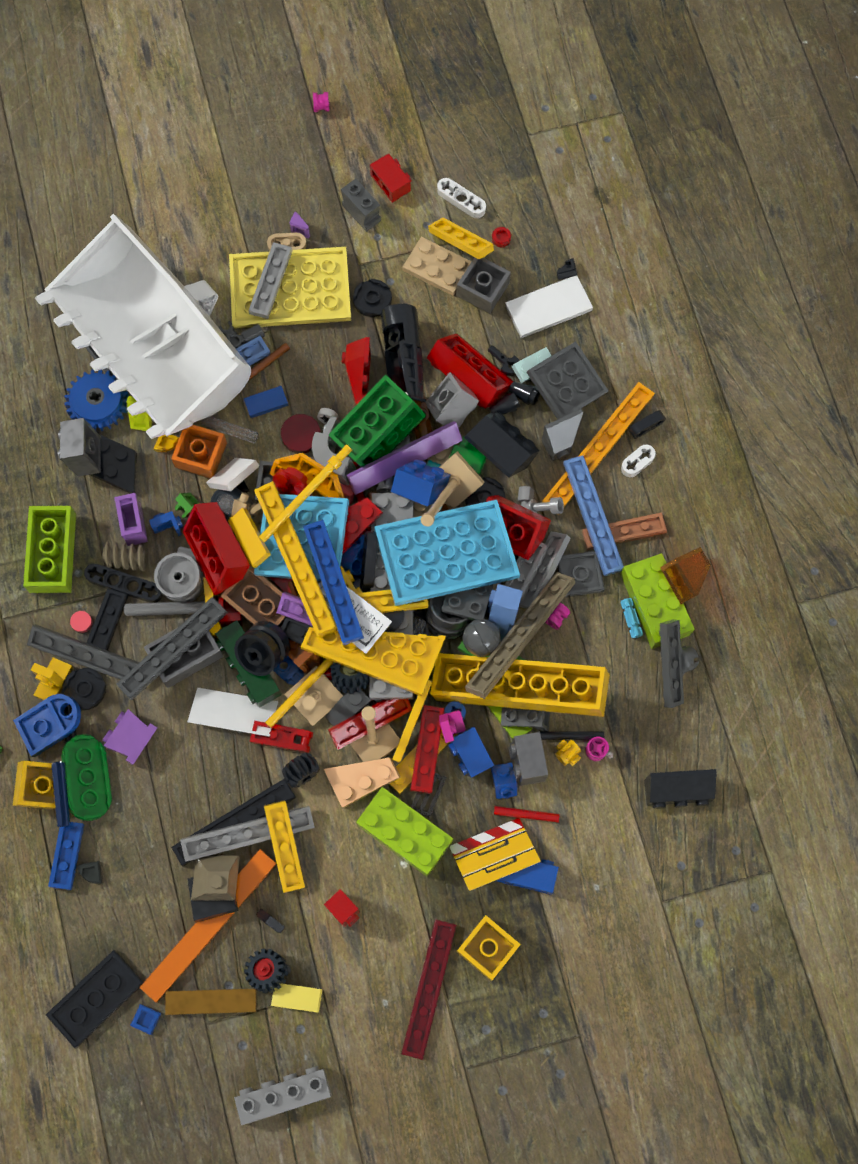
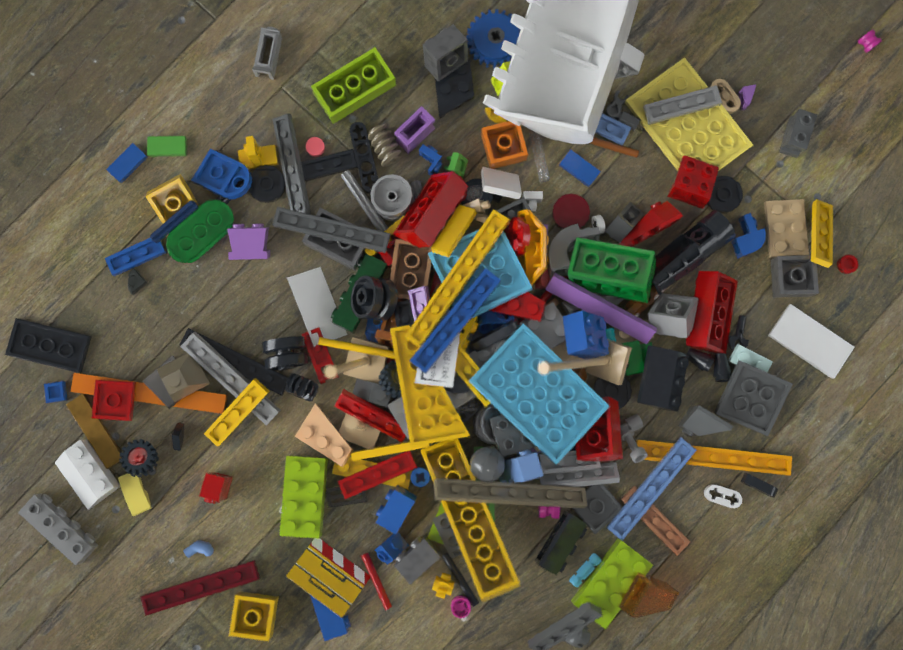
camera: 55 degrees right, 10 degrees up
(193, 962) = (113, 400): none -> red tile
(247, 1036) = (86, 473): none -> white slope
(258, 764) = (284, 353): none -> black wheel
(265, 454) = (533, 198): none -> white tile
(333, 463) = (552, 258): yellow bar -> none
(341, 393) = (624, 222): none -> dark grey slope
(345, 314) = (694, 182): none -> red bracket
(390, 177) = (839, 141): red brick -> none
(393, 959) = (199, 546): none -> medium blue arm
(426, 297) = (751, 240): none -> blue brick
(451, 724) = (405, 481): dark pink bracket -> none
(457, 190) = (854, 215): white beam -> none
(567, 270) = (854, 337): black tile -> none
(593, 622) = (561, 543): none -> black slope

